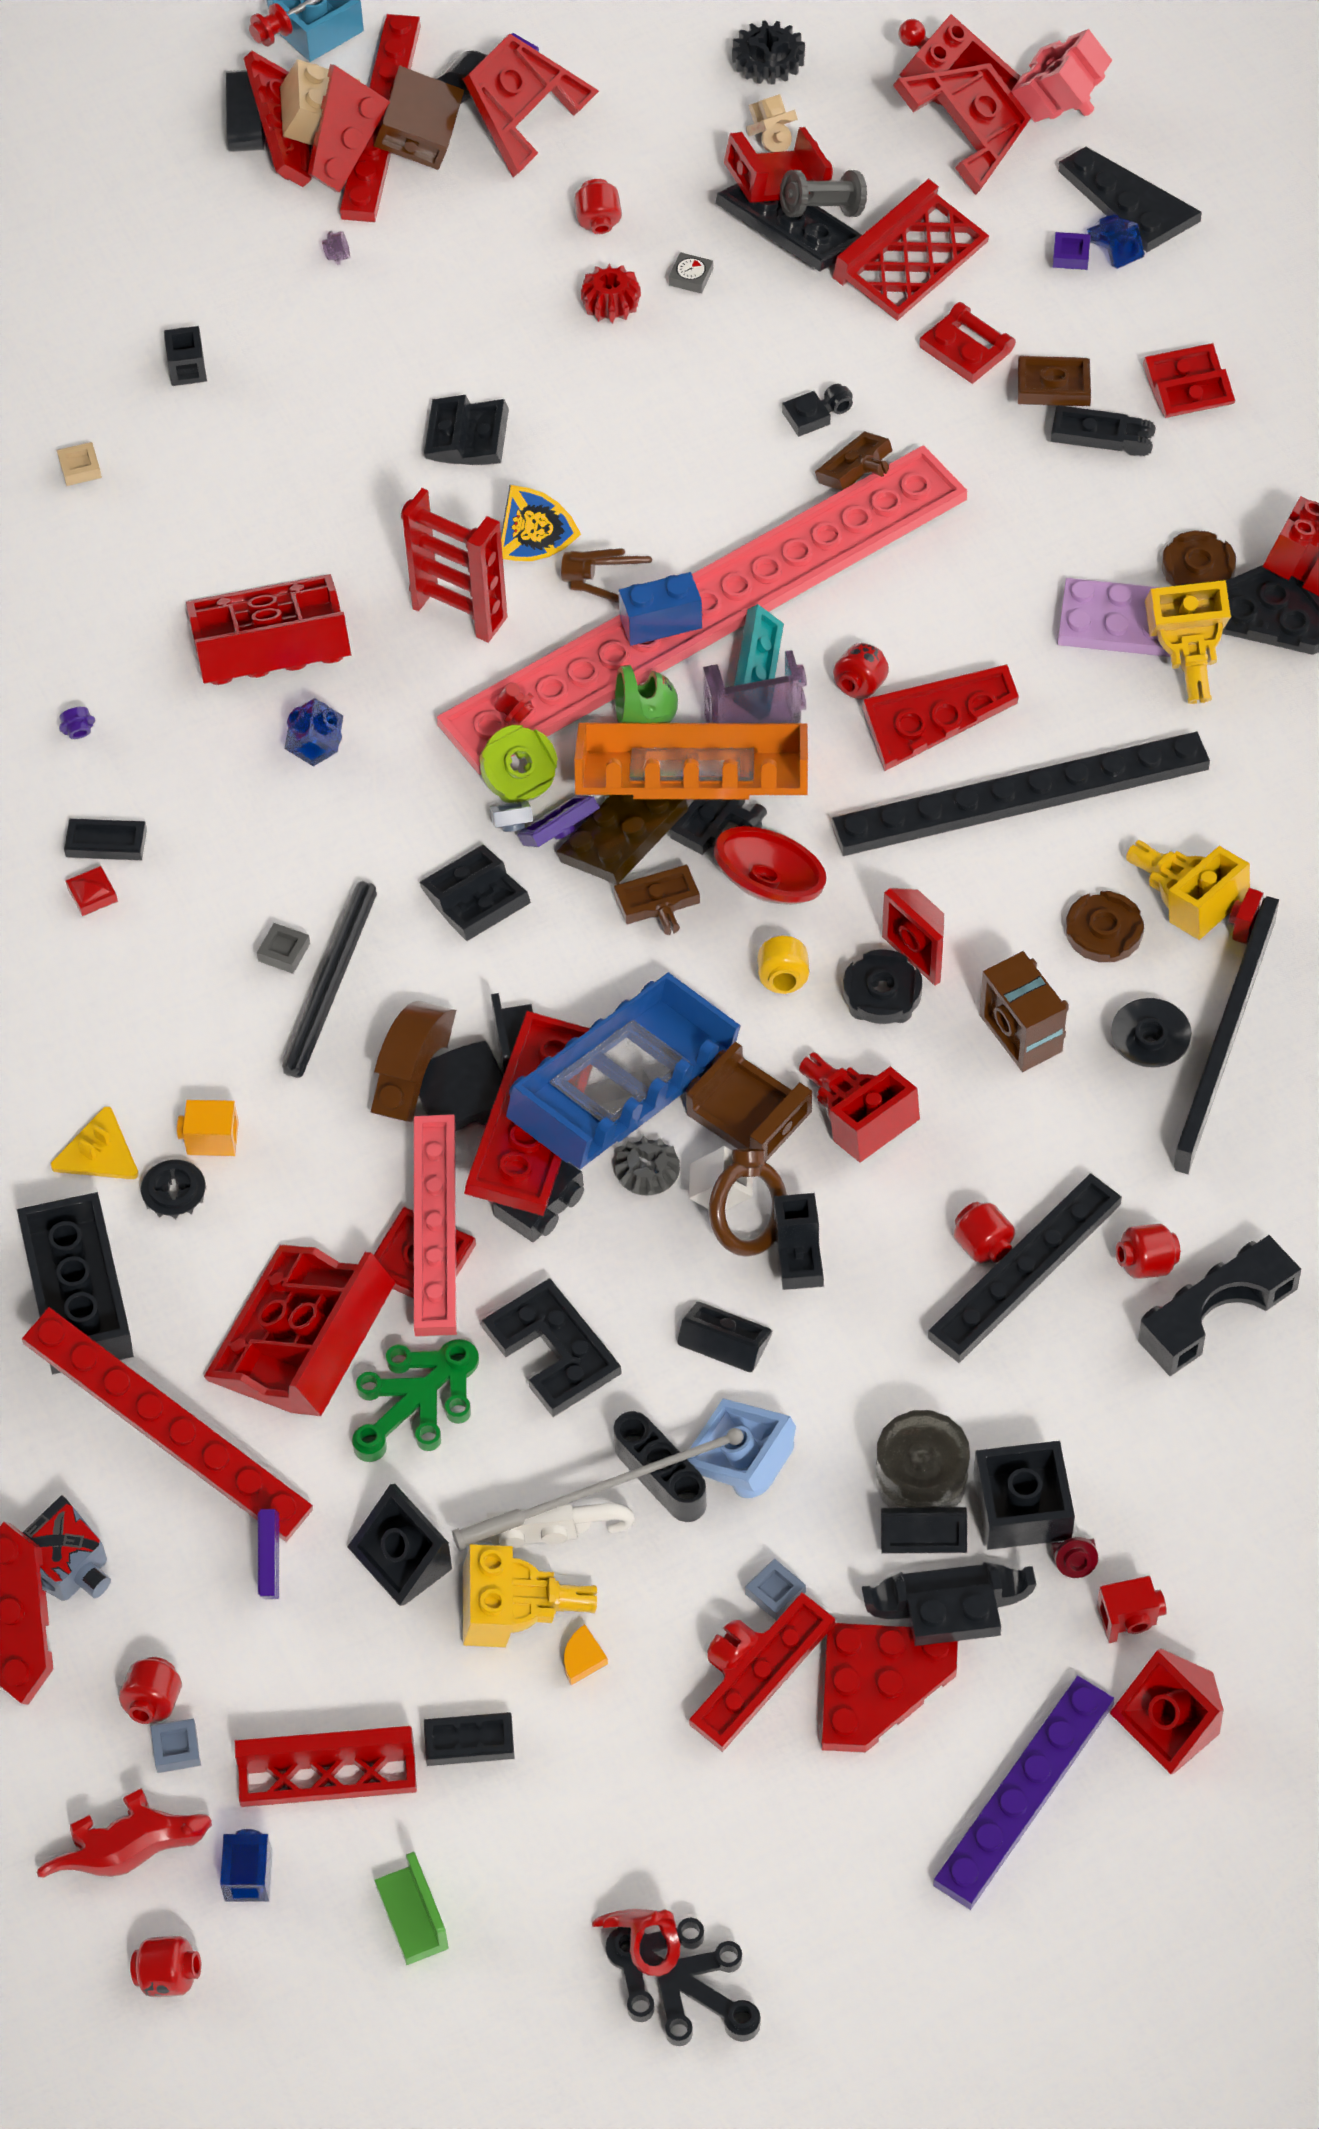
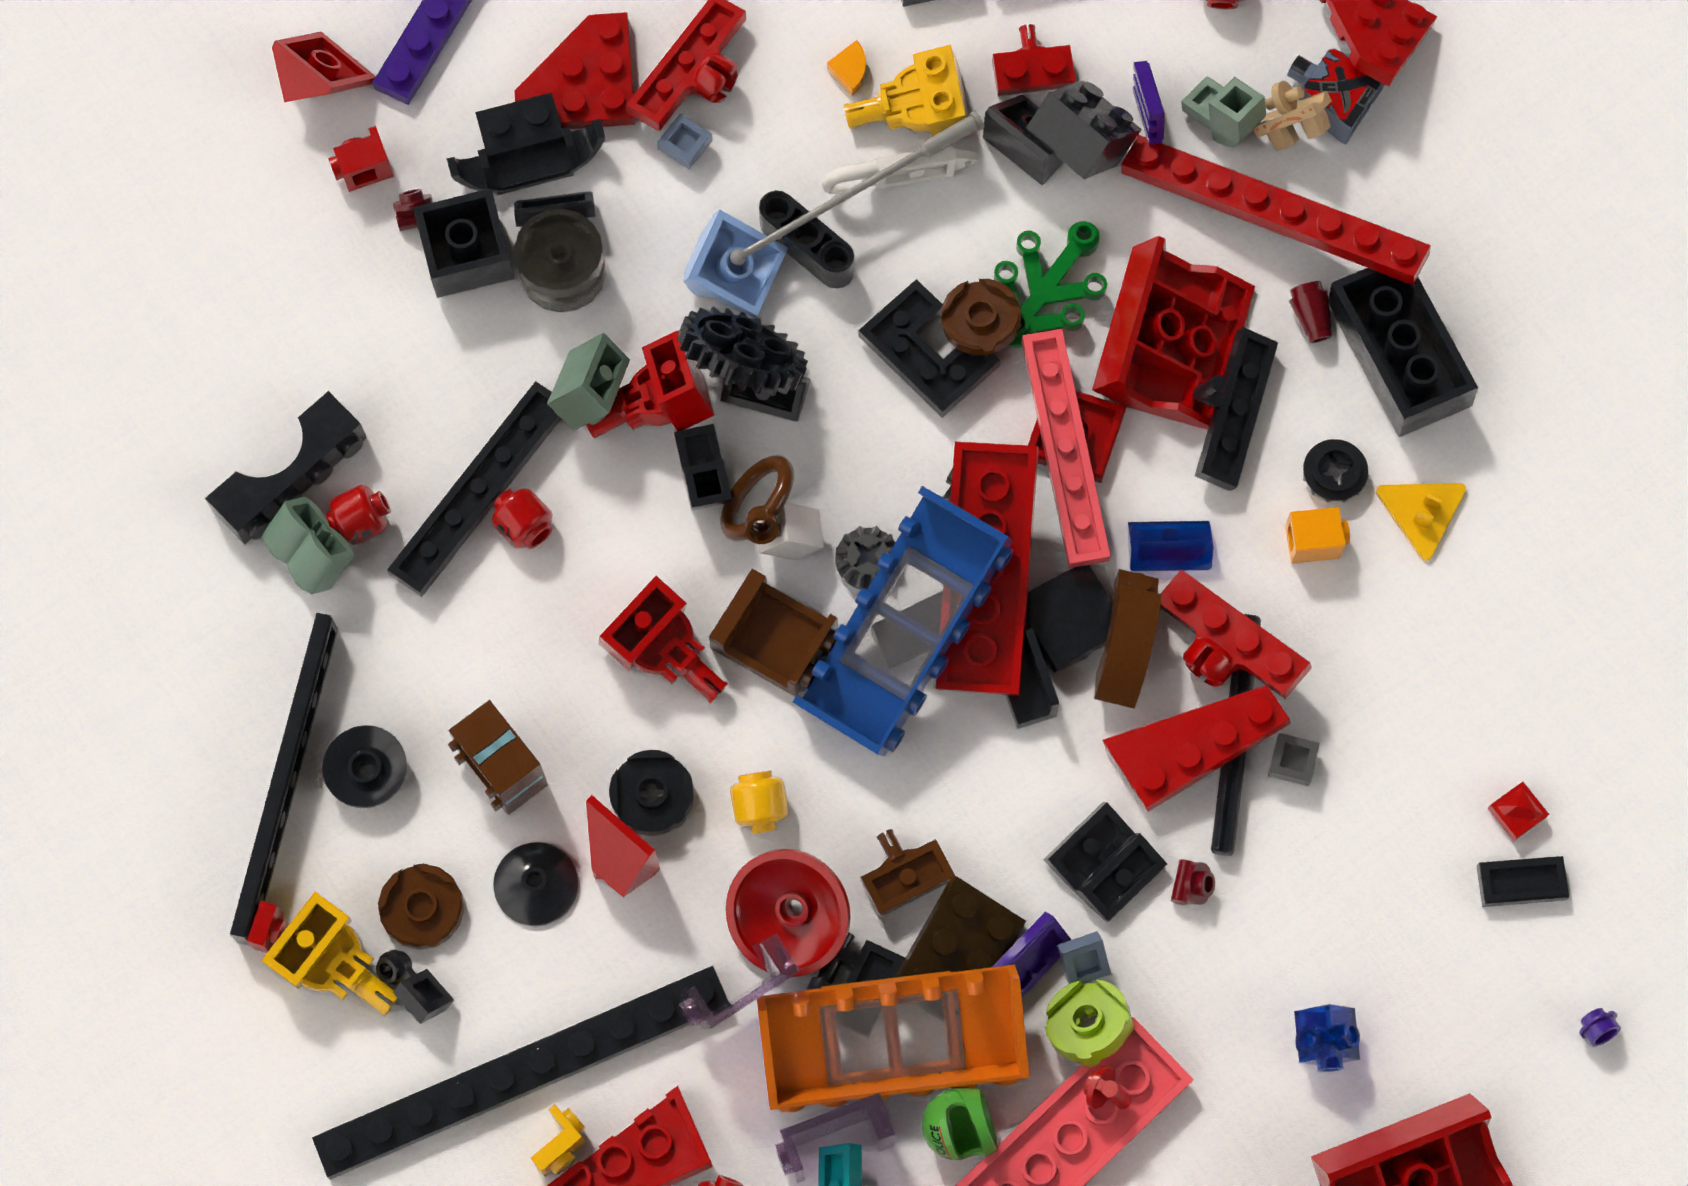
camera: 170 degrees right, 15 degrees up
(118, 1517) = (1279, 123): none -> tan hips
(153, 1338) = (1312, 310): none -> dark red cone
(185, 1538) = (1225, 110): none -> sand green brick
(254, 1252) = (1236, 407): none -> black plate
(318, 1043) = (1229, 639): none -> red plate
(346, 1522) = (1083, 128): none -> black brick
(350, 1147) = (1170, 545): none -> clear blue slope
(382, 1630) = (1032, 66): none -> red plate
(384, 960) = (1185, 748): none -> red wing
(401, 865) = (1192, 883): none -> dark red plate
(493, 1358) = (981, 317): none -> reddish brown tile
(720, 1305) = (742, 351): none -> black gear
(819, 791) = (778, 965): none -> panel
(827, 1323) = (660, 392): none -> red brick
(904, 1329) = (588, 382): none -> sand green brick
(988, 946) = (535, 904): none -> black dish
(991, 729) = (558, 1153): none -> yellow bracket
(1106, 853) = (419, 991): none -> black plate
(1199, 1222) = (307, 545): none -> sand green brick

